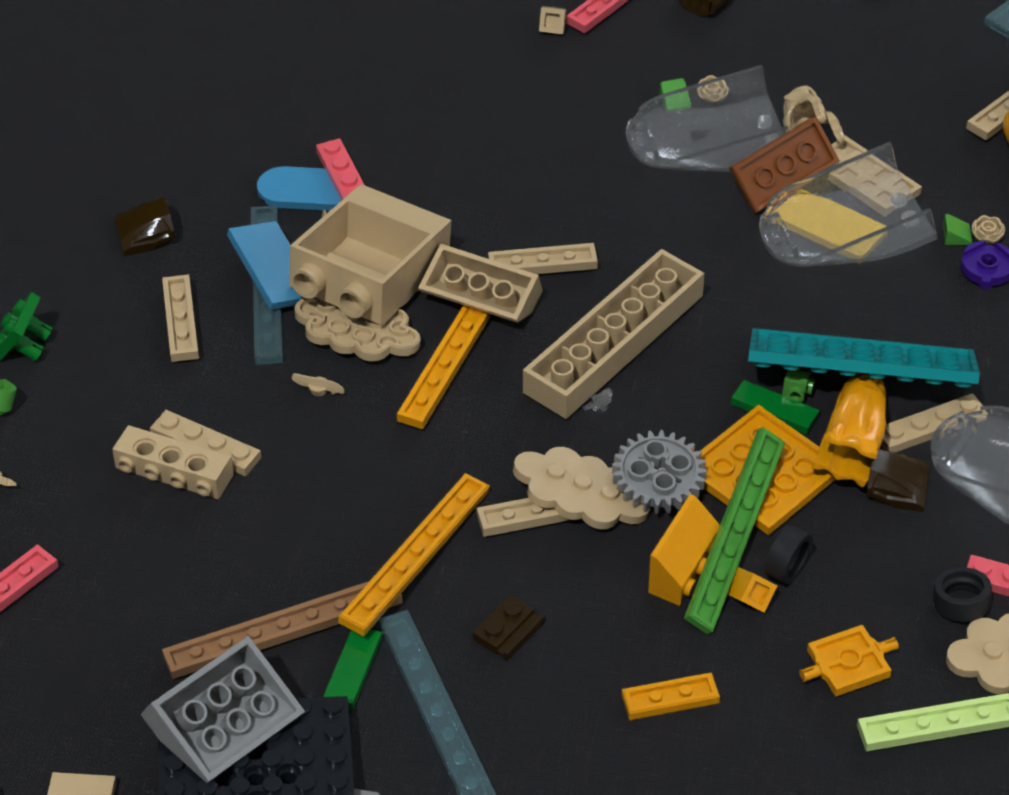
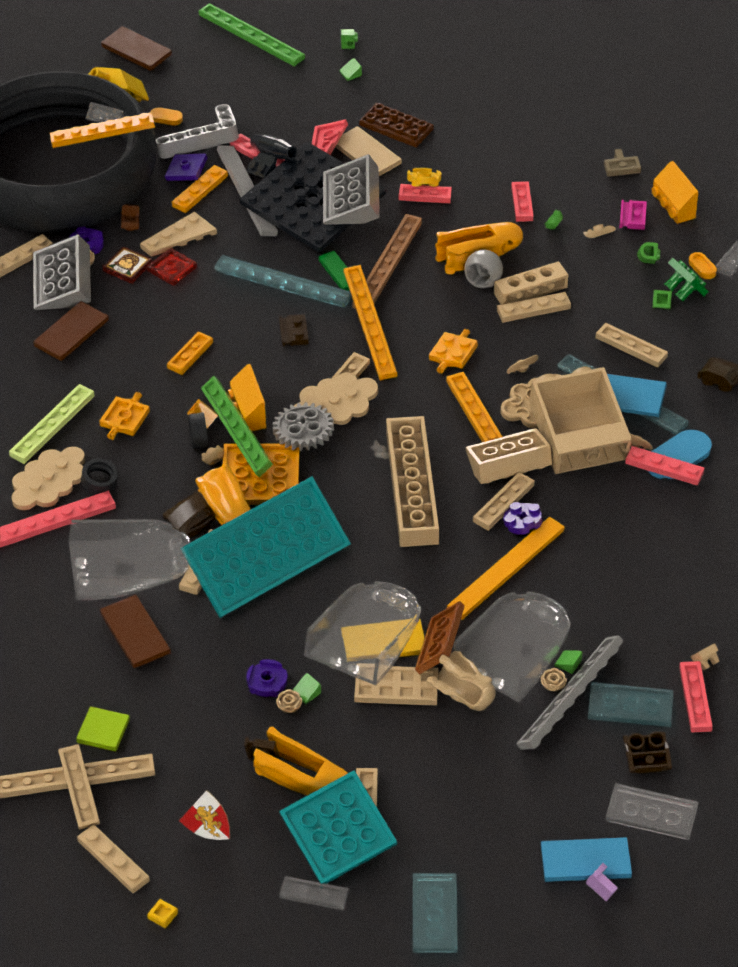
camera: 135 degrees right, 0 degrees up
(22, 531) = (554, 220): none -> bright green plate
(64, 348) = (662, 299): none -> bright green slope
(86, 716) = (424, 176): none -> yellow plate
(102, 690) = (425, 193): none -> coral plate
(166, 547) = (459, 244): none -> light orange piece
(203, 504) = (483, 268): none -> light grey wheel
(365, 456) = (453, 350): none -> light orange plate
(543, 218) = (529, 512): none -> plate
(622, 206) = (508, 565): none -> light orange tile
(667, 36) = (630, 704): none -> clear light blue tile
(694, 69) = (568, 694): none -> light grey plate
(797, 517) = (213, 455): none -> tan plate

